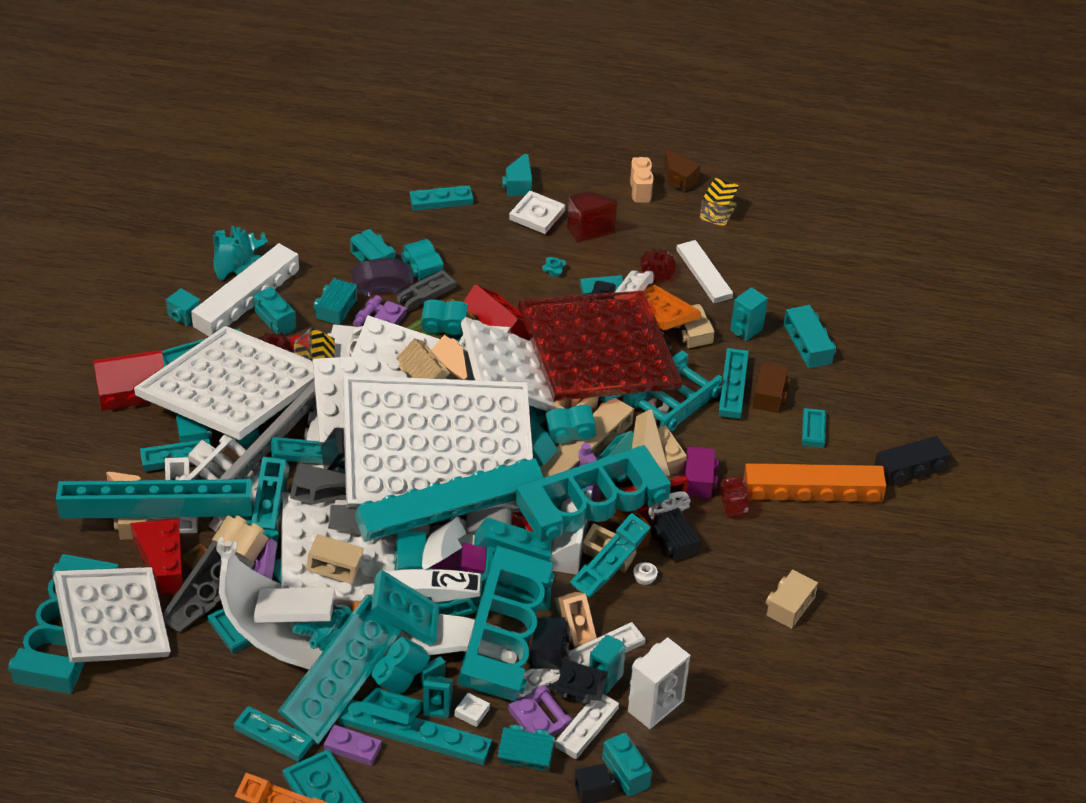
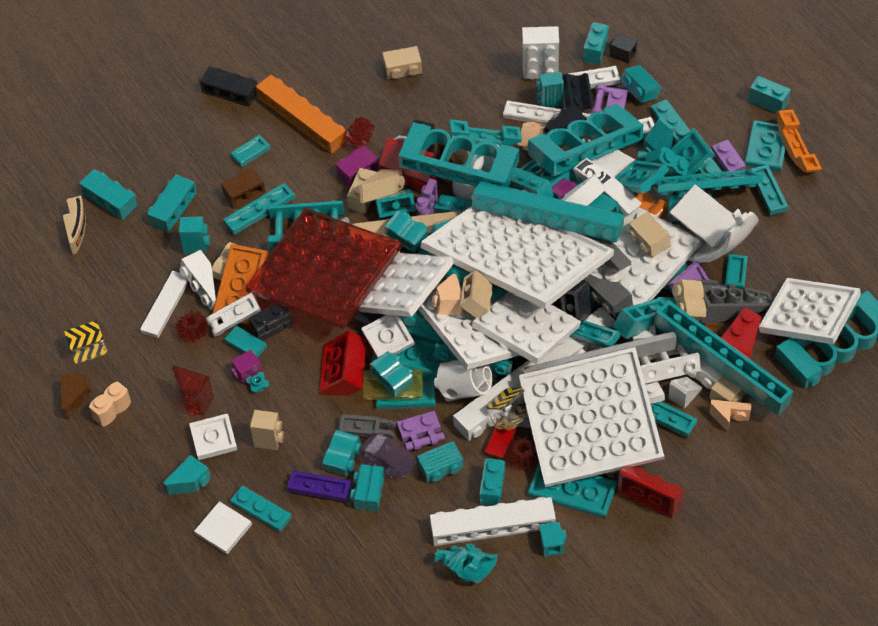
camera: 130 degrees left, 10 degrees up
(414, 232) = (319, 486): none -> dark purple plate
(453, 171) = (223, 528): none -> white tile
(496, 227) = (266, 430): none -> tan brick
(575, 266) = (245, 366): none -> magenta brick
(709, 294) = (199, 274): none -> white slope
(859, 271) = (75, 222): none -> tan slope
(869, 308) = (108, 194): none -> teal brick

